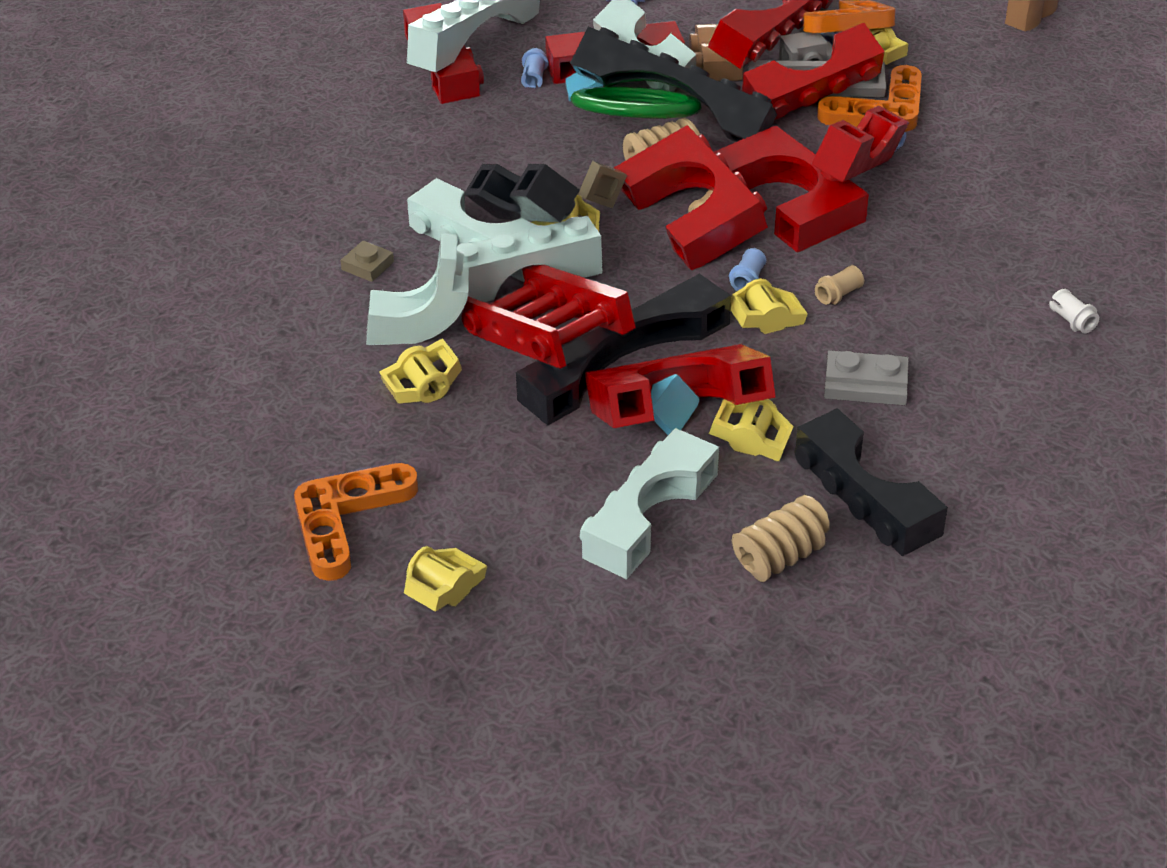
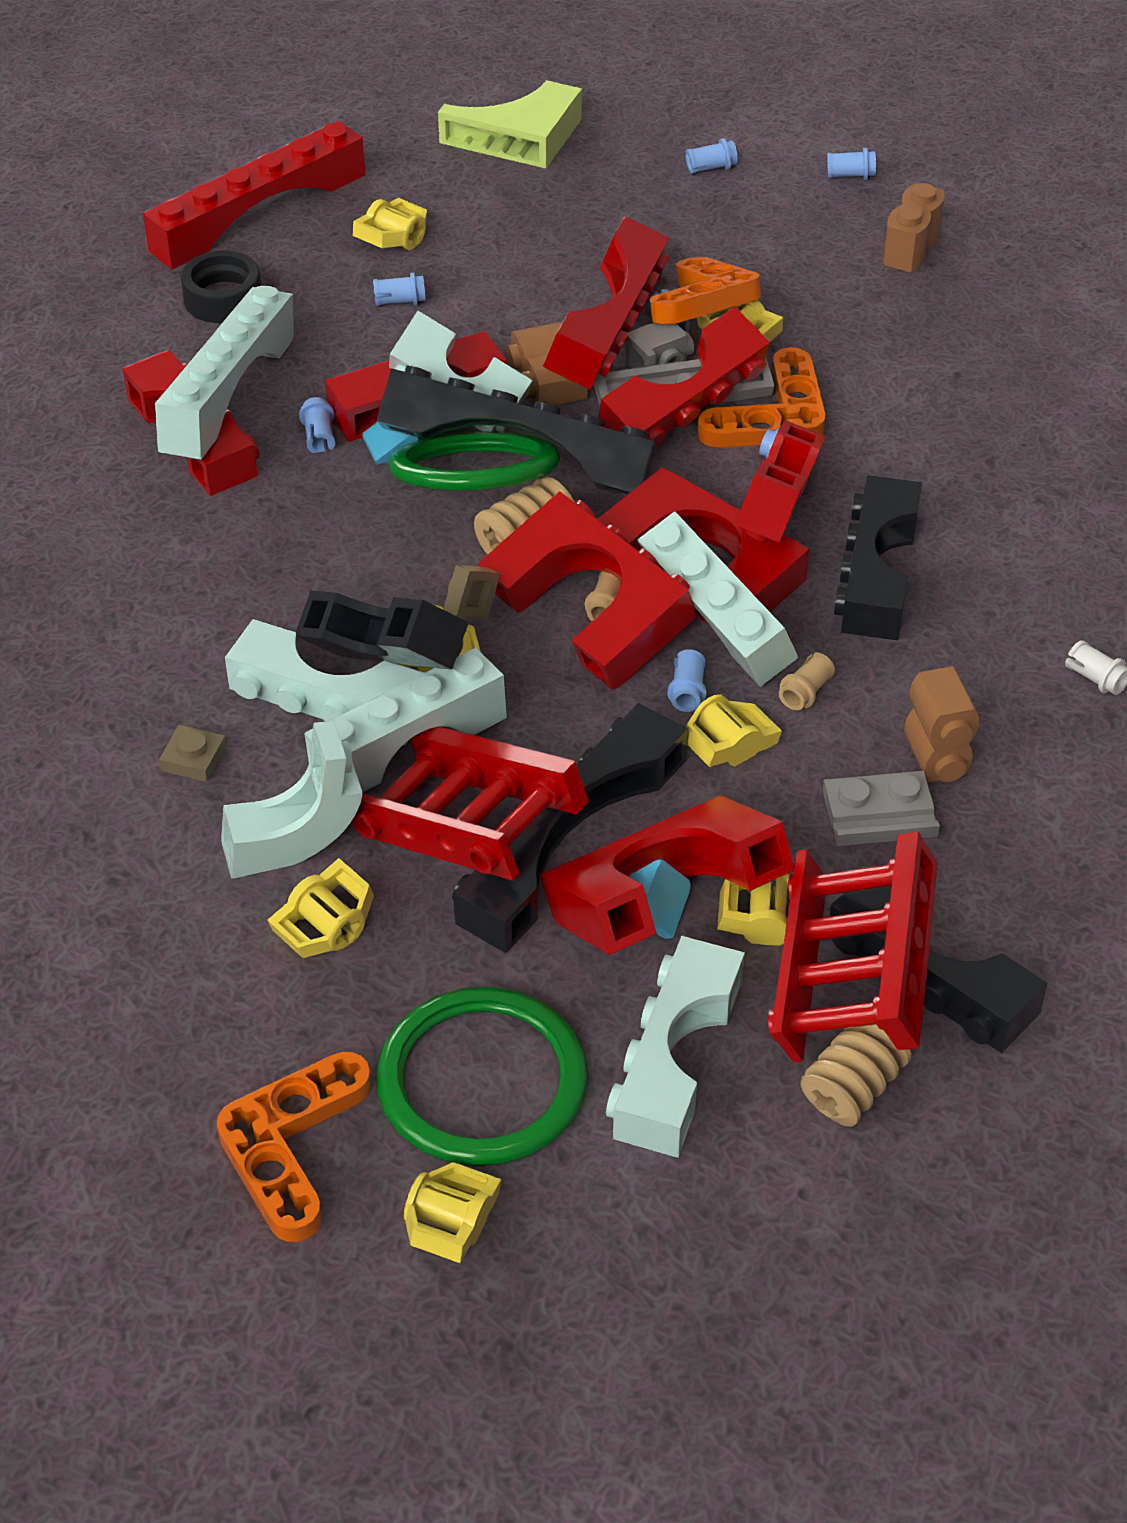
camera: 15 degrees left, 5 degrees up
(499, 547) = (486, 1150): none -> green wedge
(788, 217) = (722, 599): none -> light aqua arch
(823, 474) = (899, 964): none -> red fence
(913, 234) = (875, 591): none -> black arch
(928, 323) = (941, 724): none -> medium nougat brick

